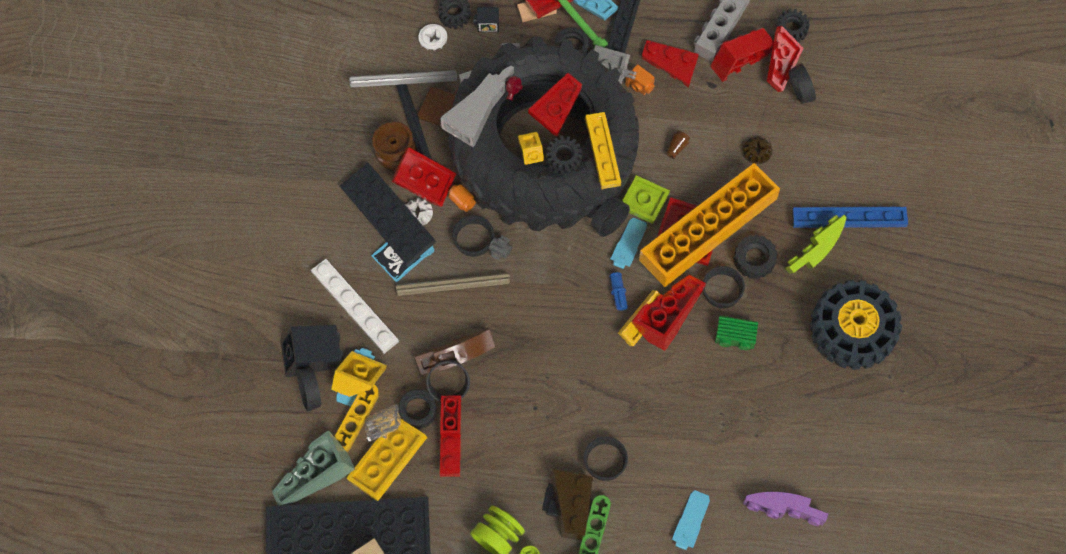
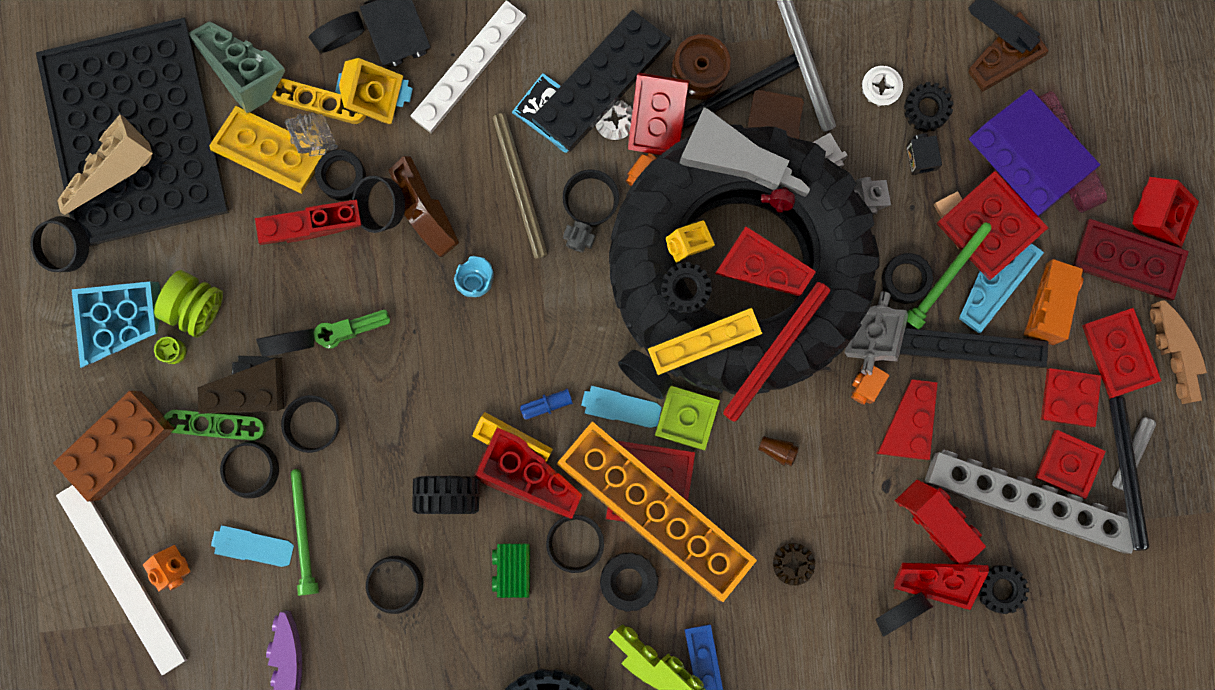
camera: 80 degrees right, 15 degrees up
(516, 323) = (474, 277): none -> medium azure hair
(537, 419) = (349, 329): none -> bright green connector
(541, 463) = (286, 342): none -> black tyre
(618, 108) = (776, 351): none -> red axle
(626, 531) = (273, 475): none -> black tyre
(676, 364) = (445, 495): none -> black tyre
(725, 481) = (307, 583): none -> bright green piece
(731, 437) = (418, 578): none -> black tyre

